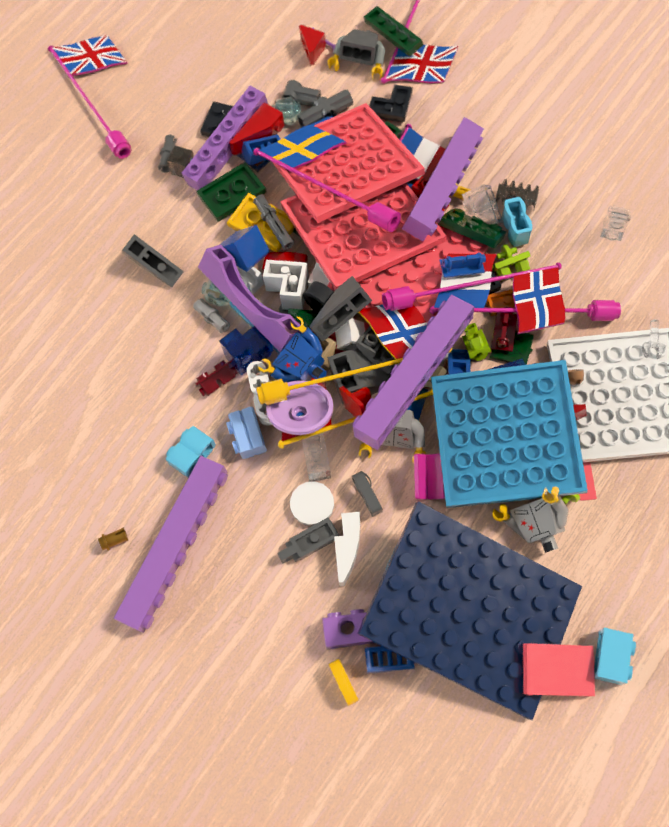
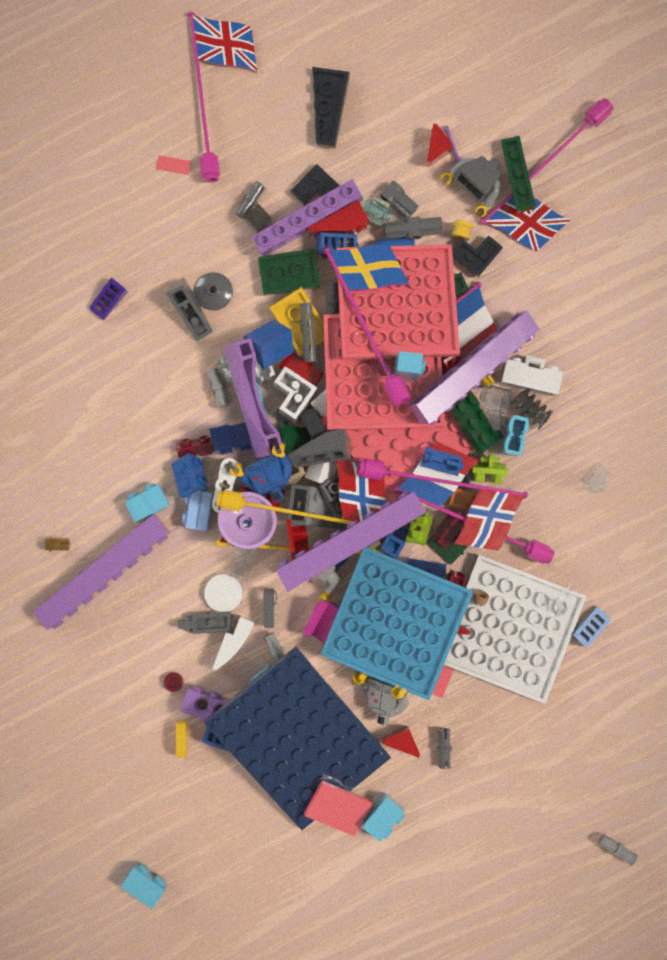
camera: 20 degrees right, 20 degrees up
(70, 276) = (118, 297): none -> dark purple slope
(84, 161) = (173, 165): none -> coral sticker
(171, 246) = (215, 300): none -> dark grey dish
(201, 55) = (329, 94): none -> black wing
(220, 402) = (189, 475): none -> blue bracket
(280, 190) = (332, 298): none -> dark grey pin
(304, 624) = (173, 681): none -> dark red tile
(368, 89) = (462, 230): none -> yellow wheel
(383, 189) = (409, 365): none -> medium azure brick
(390, 528) = (274, 646): none -> light grey pin
(500, 167) = (539, 380): none -> white piece
(586, 560) = (402, 741): none -> red slope
(632, 547) = (444, 748): none -> dark grey pin

